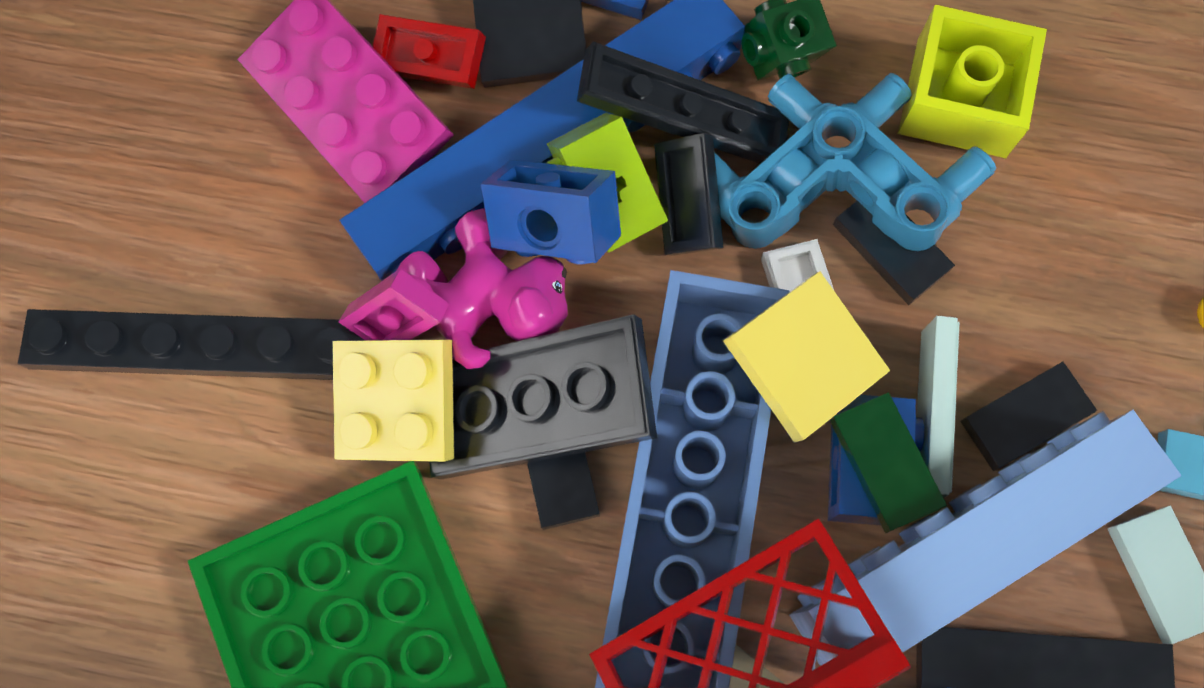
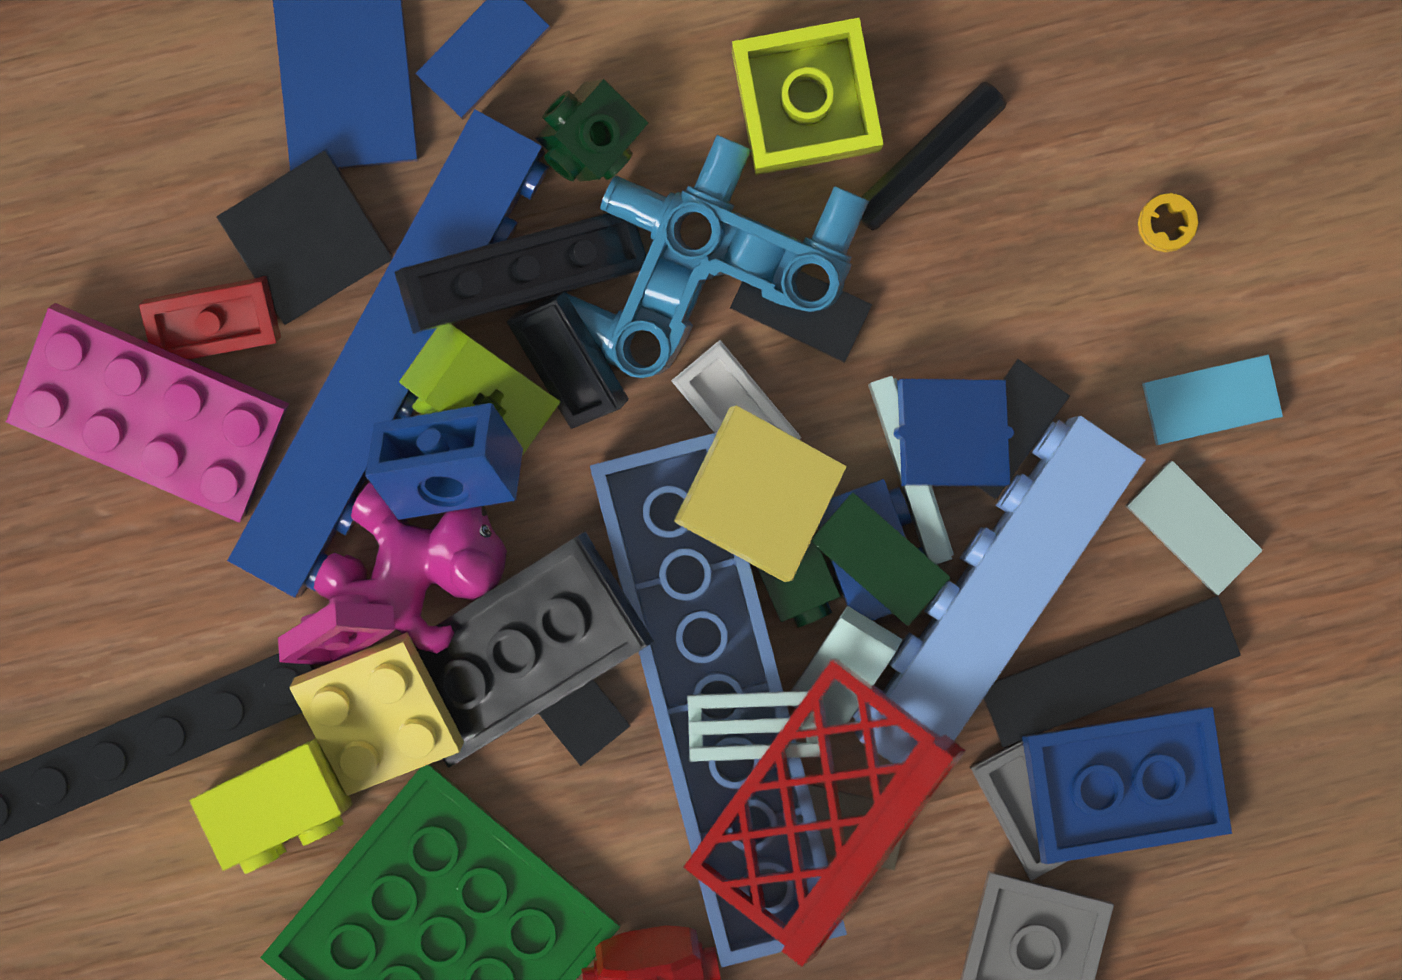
camera: 25 degrees left, 15 degrees up
(260, 429) = (270, 804): none -> neon yellow brick
(661, 530) = (750, 751): none -> light aqua tile
(799, 466) = (807, 593): none -> dark green brick
(810, 563) = (862, 648): none -> light aqua tile
(990, 390) = (953, 432): none -> blue piece
(1048, 176) = (931, 154): none -> black axle

